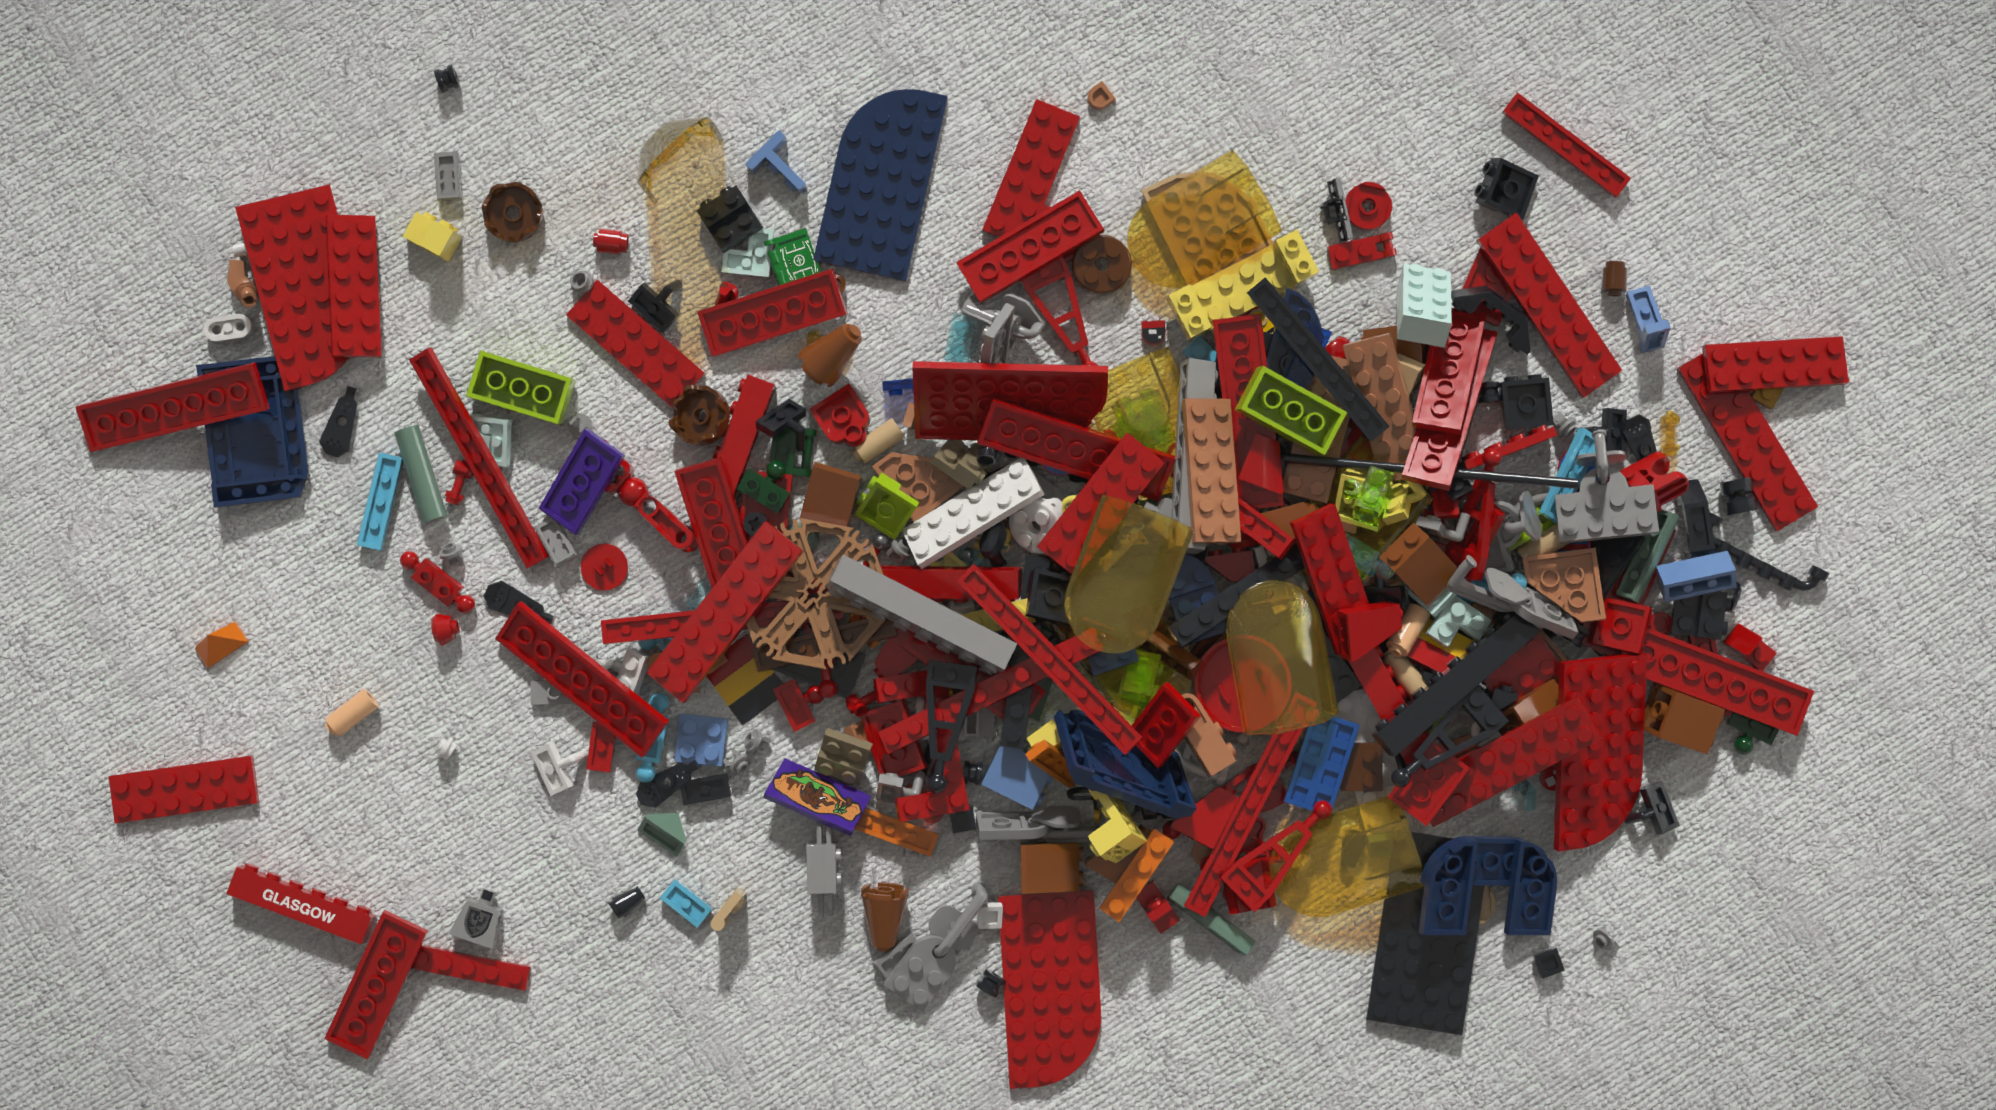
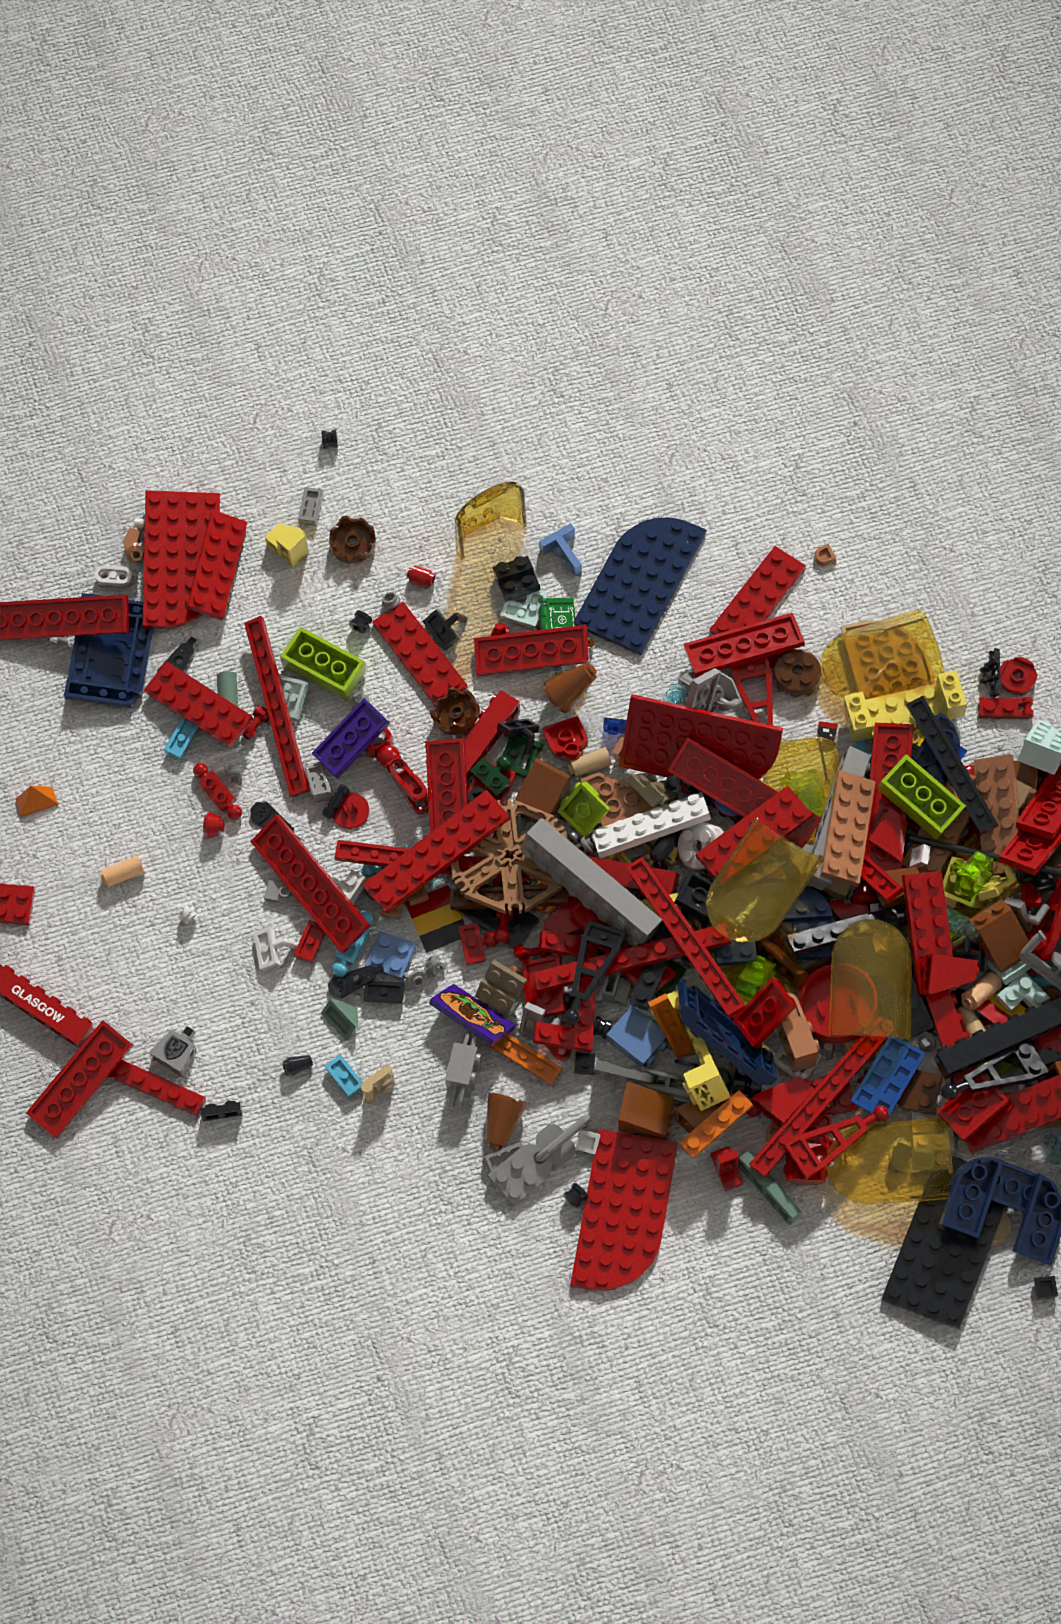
camera: 20 degrees right, 20 degrees down
(383, 479) = (198, 704): none -> red plate
(543, 983) = (227, 1110): none -> black plate
(551, 319) = (360, 621): none -> black wheel
(584, 562) = (335, 801): none -> black axle
(1303, 483) = (920, 856): none -> white plate
(1355, 705) = (926, 1042): none -> light grey plate

